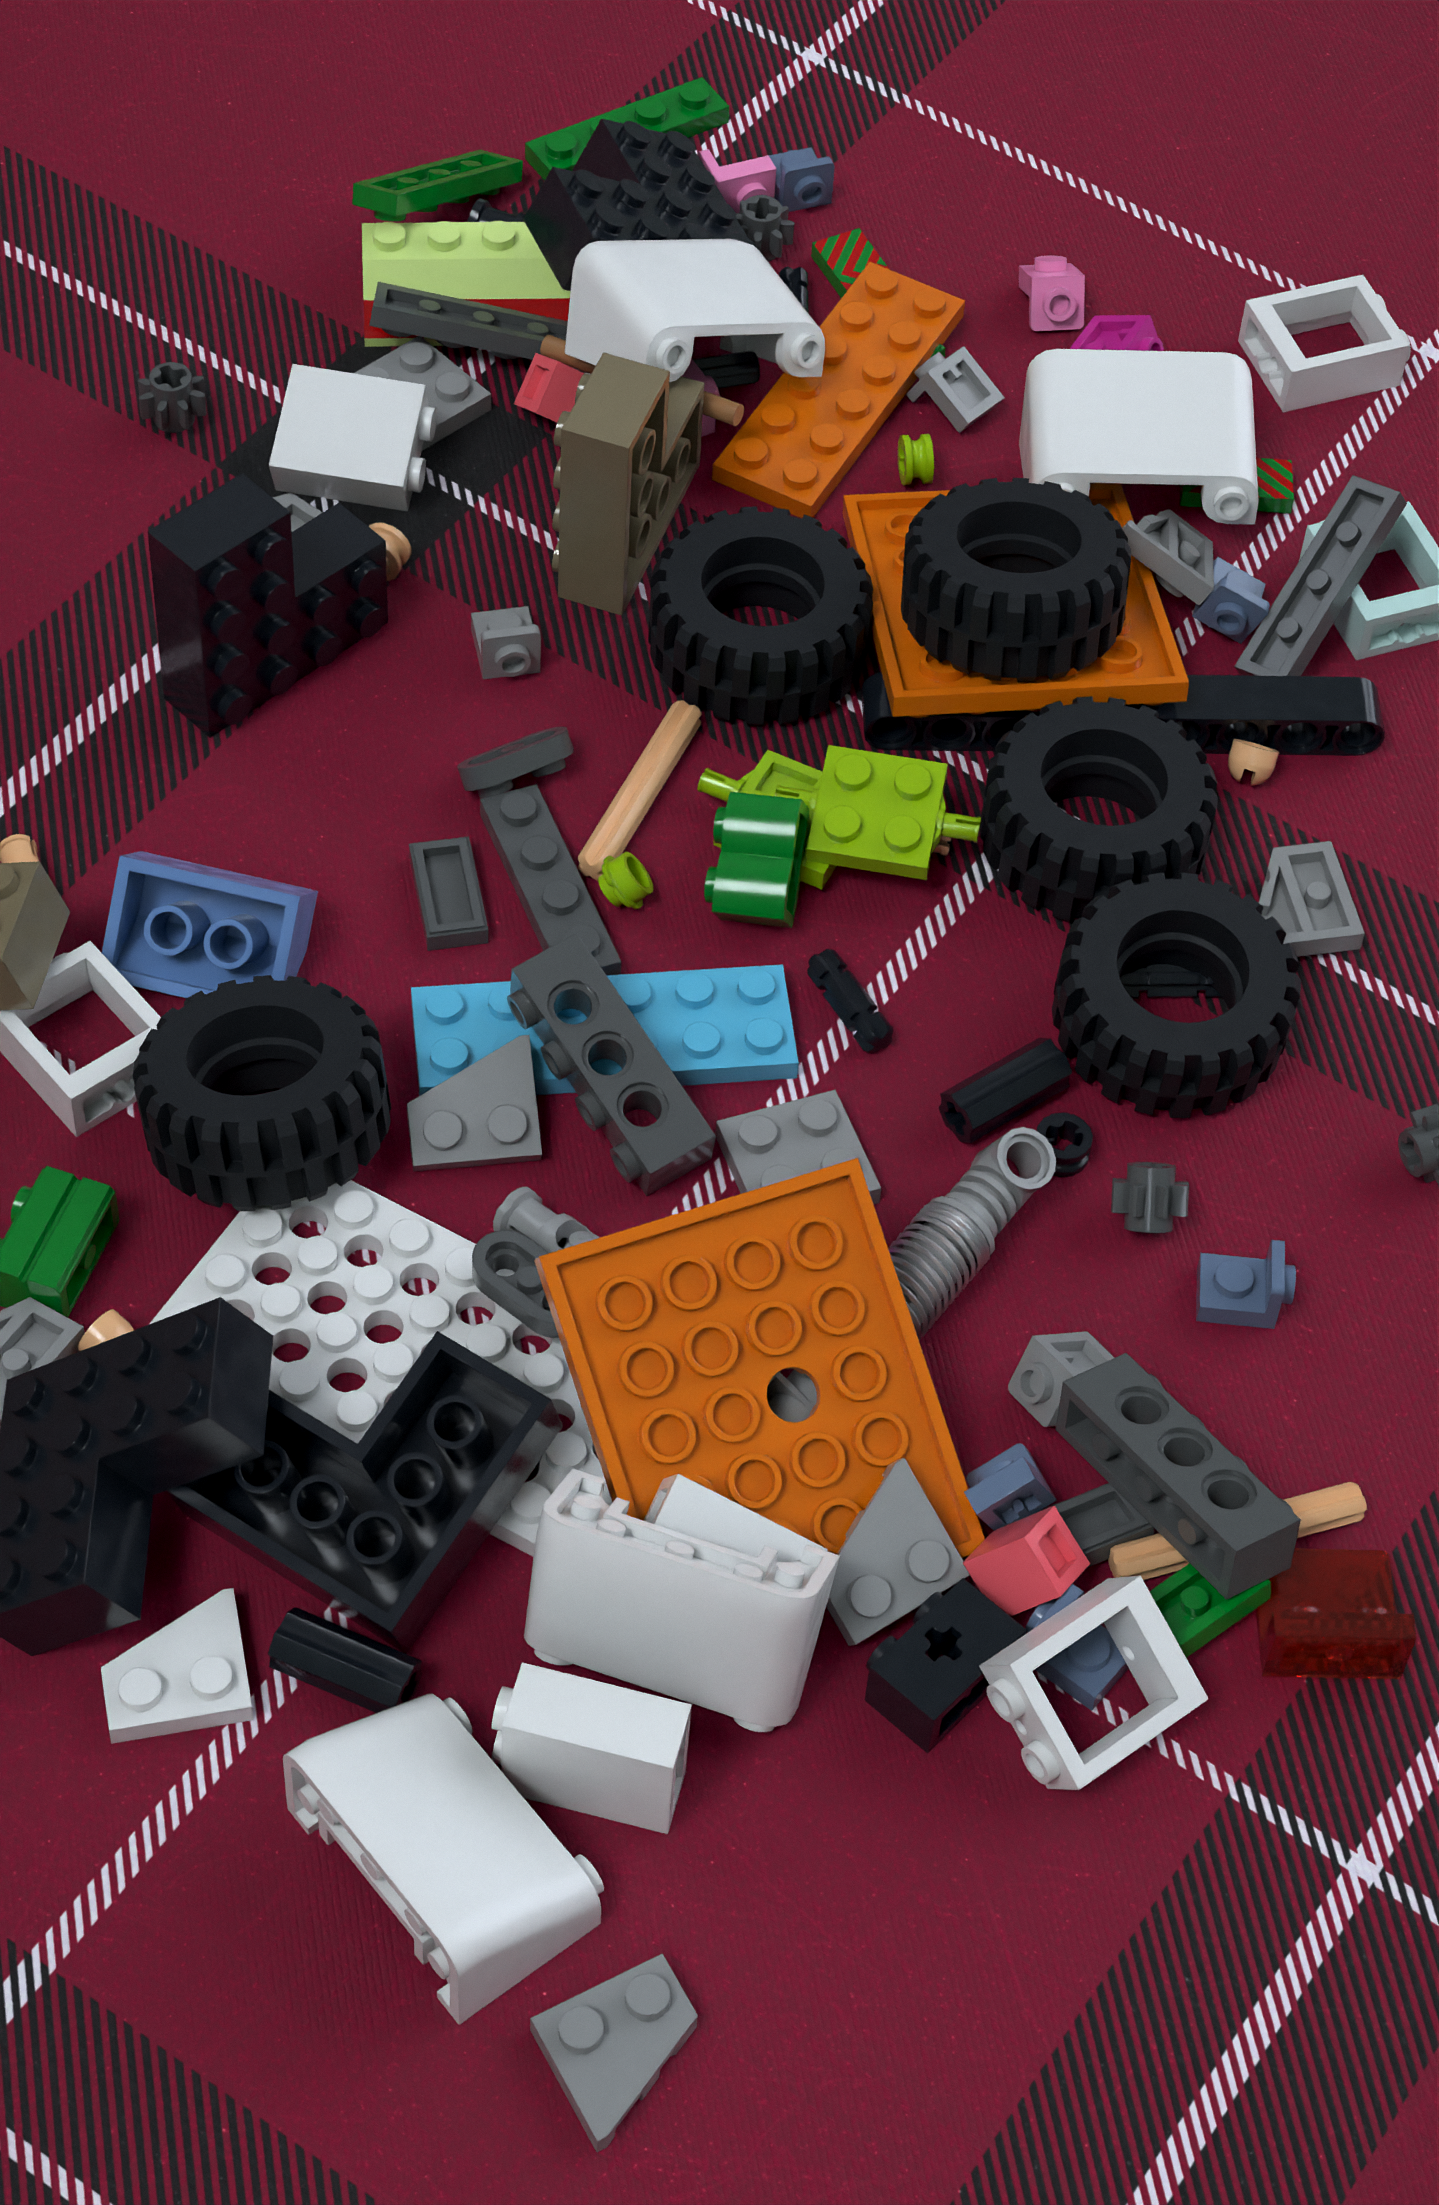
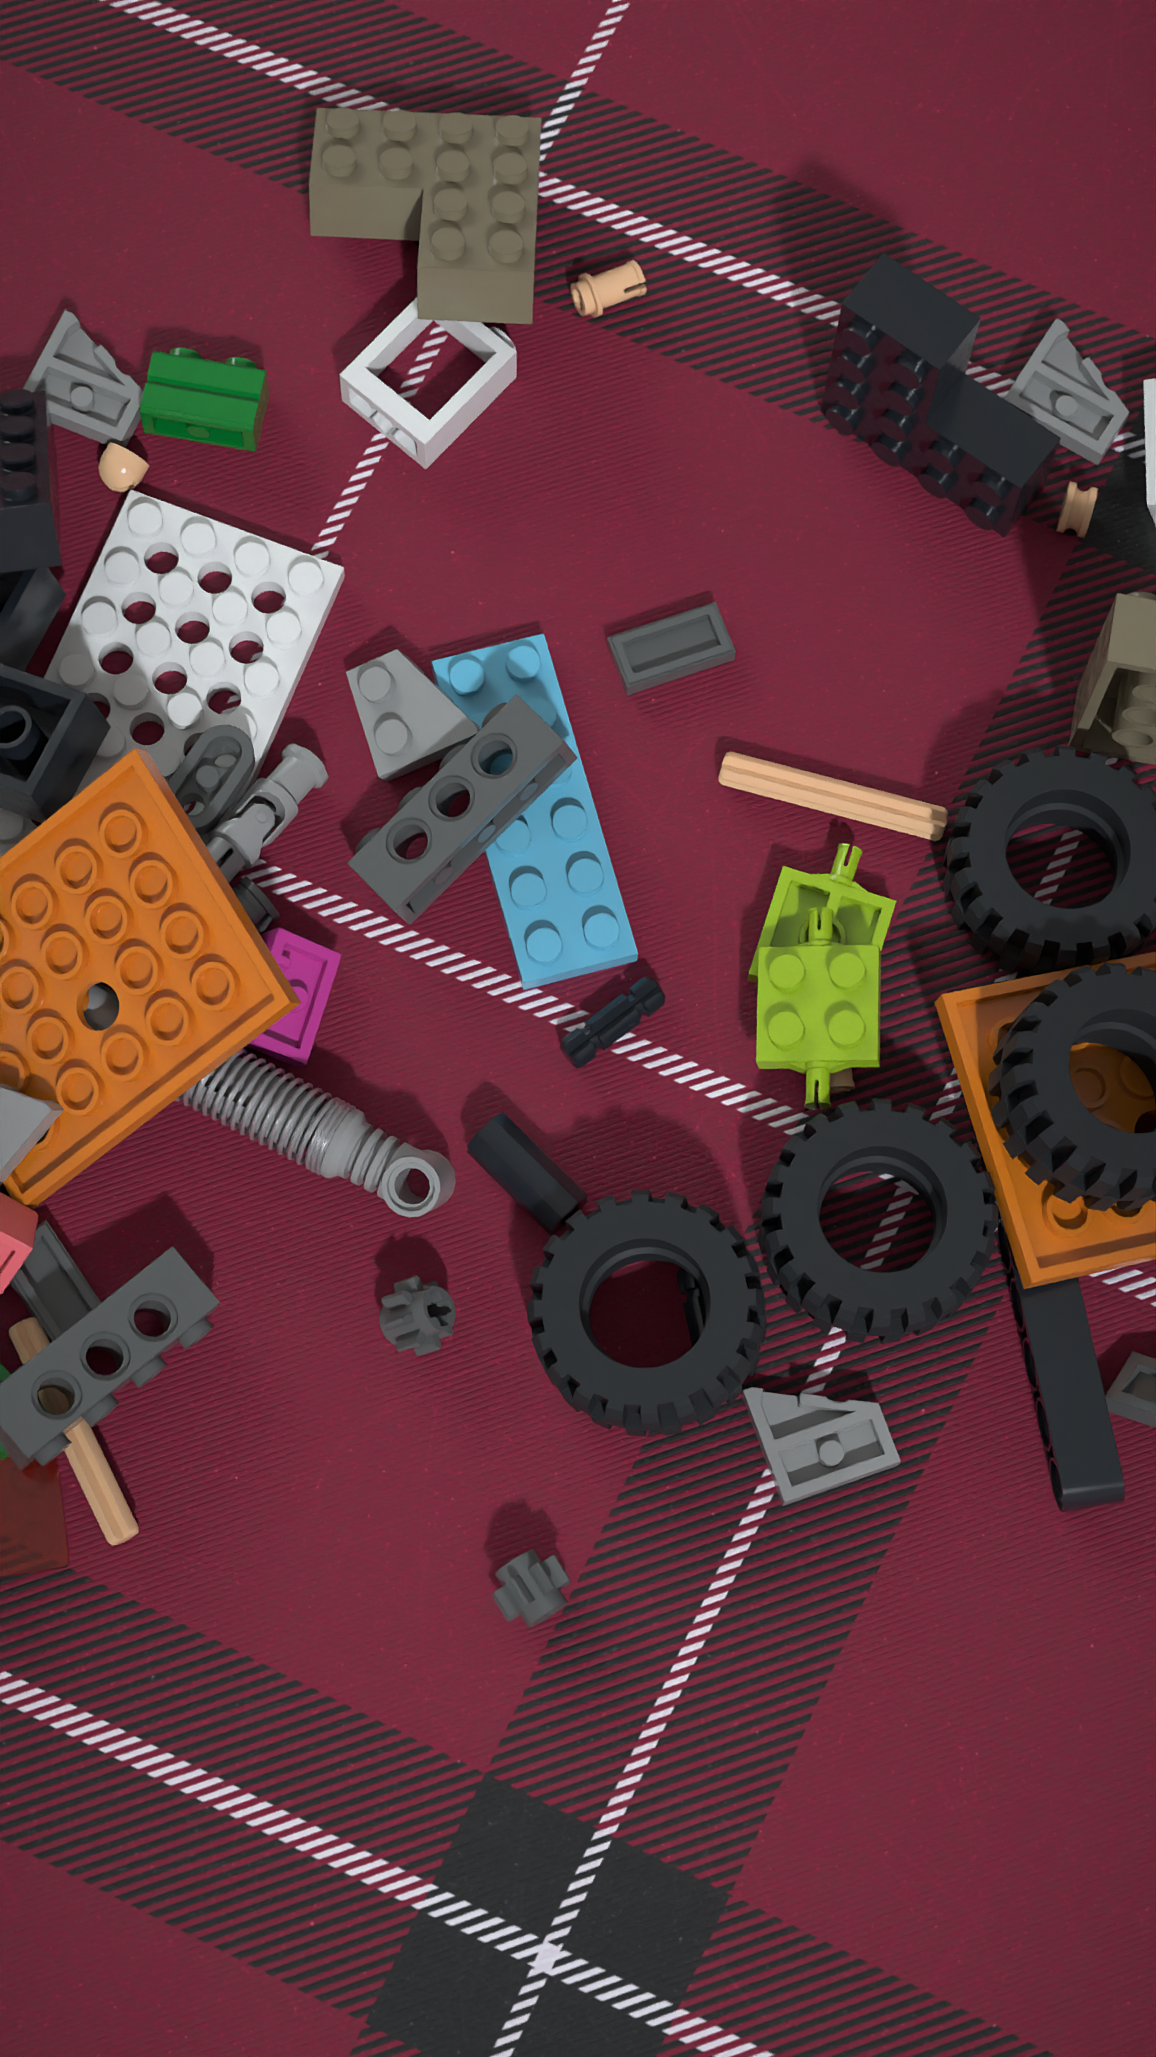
camera: 80 degrees right, 20 degrees up
(198, 926) = (570, 449): medium blue slope -> none
(270, 1143) = (377, 461): black tyre -> none
(506, 642) = (993, 644): light grey bracket -> none
(535, 753) = (835, 675): dark grey plate -> none
(545, 873) = (696, 735): dark grey plate -> none
(625, 881) = (715, 806): lime plate -> none
(758, 859) = (740, 907): green brick -> none
(791, 1142) = (418, 1000): light grey plate -> none
(1008, 1488) = (77, 1222): sand blue bracket -> none
(1047, 1364) = (217, 1257): light grey bracket -> none
(1070, 1128) = (497, 1229): black bush -> none
(1244, 1288) = (342, 1415): sand blue bracket -> none
(1253, 758) = (1017, 1377): light nougat hinge -> none

